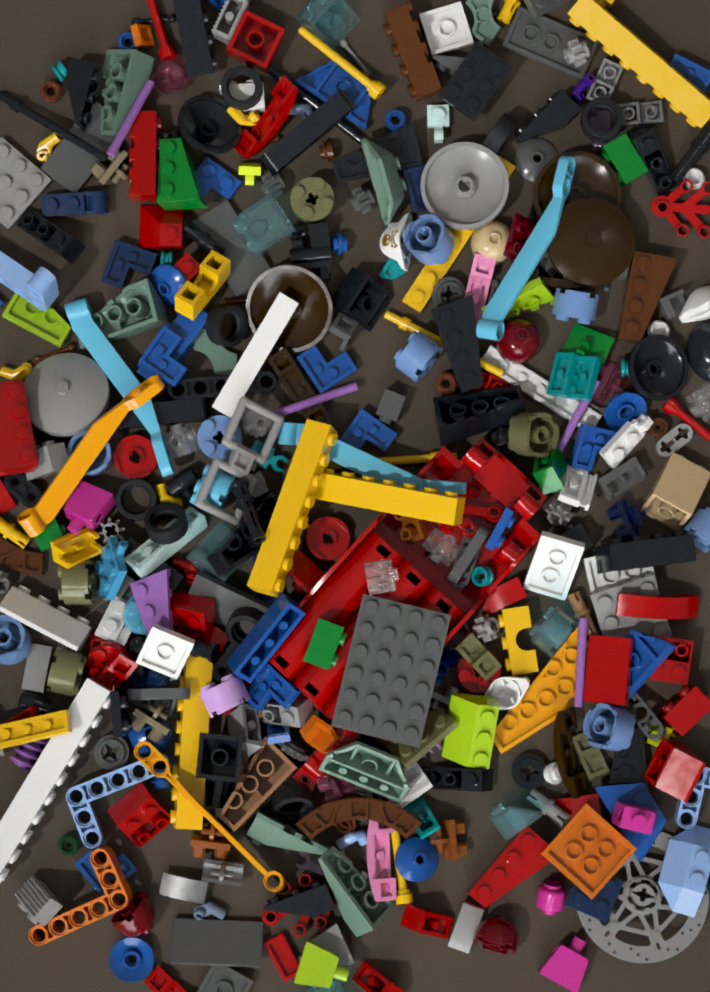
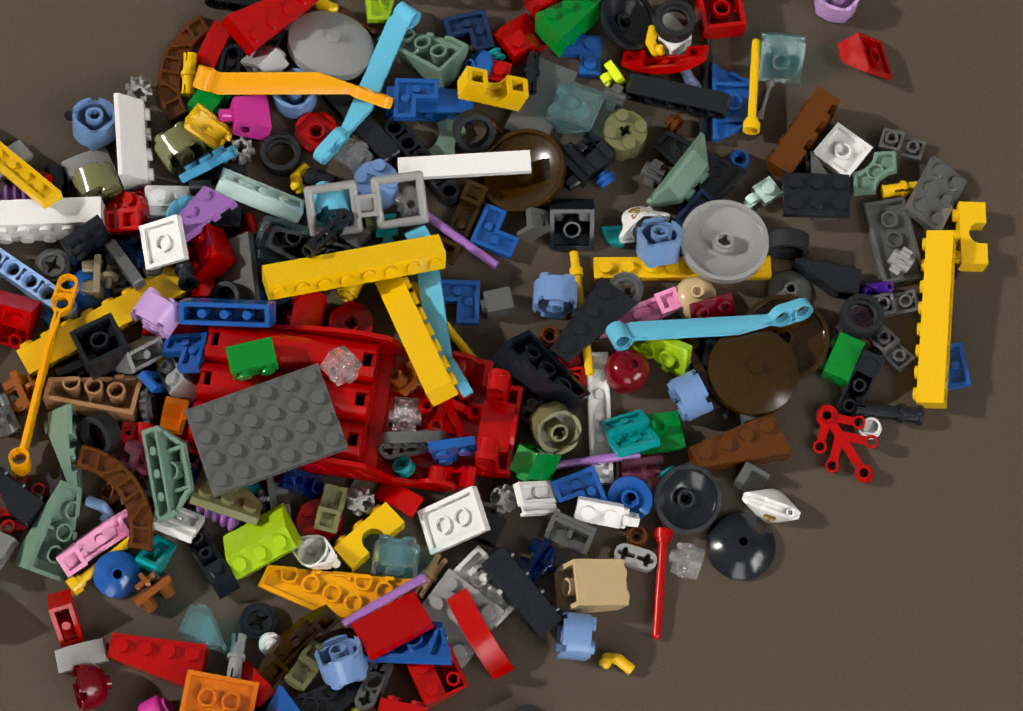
camera: 60 degrees right, 15 degrees down
(163, 511) = (270, 191): black tyre -> none
(658, 327) = (723, 480): white plate -> none

